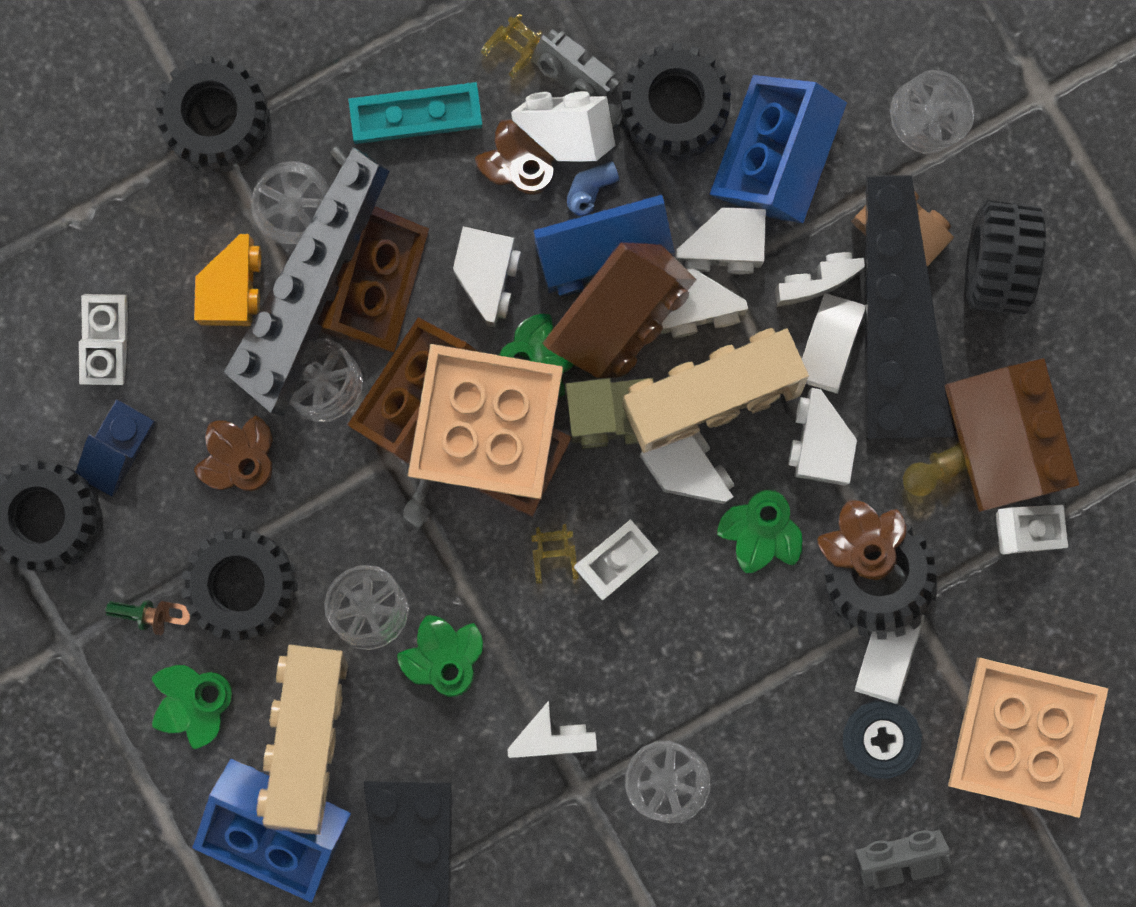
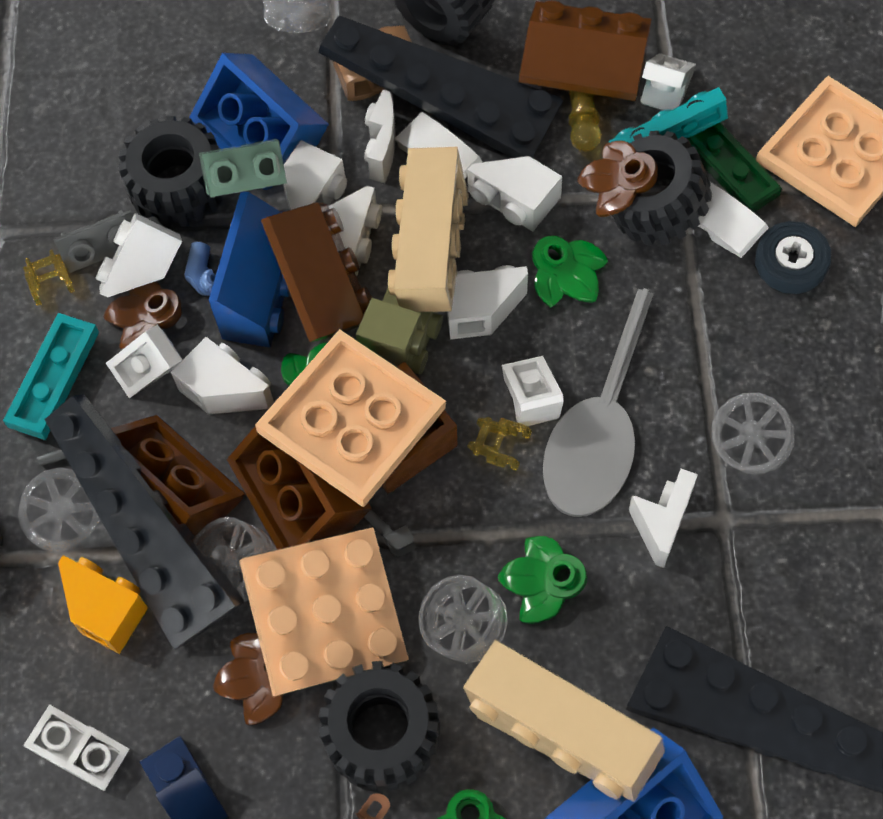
camera: 60 degrees left, 20 degrees down
(312, 486) = (322, 610): none -> light nougat plate
(469, 194) = (144, 361): none -> white slope
(599, 639) = (595, 438): none -> light grey piece
(671, 192) = (243, 168): none -> sand green hips
(963, 559) = (686, 120): none -> teal plate
(965, 629) = (734, 167): none -> dark green tile

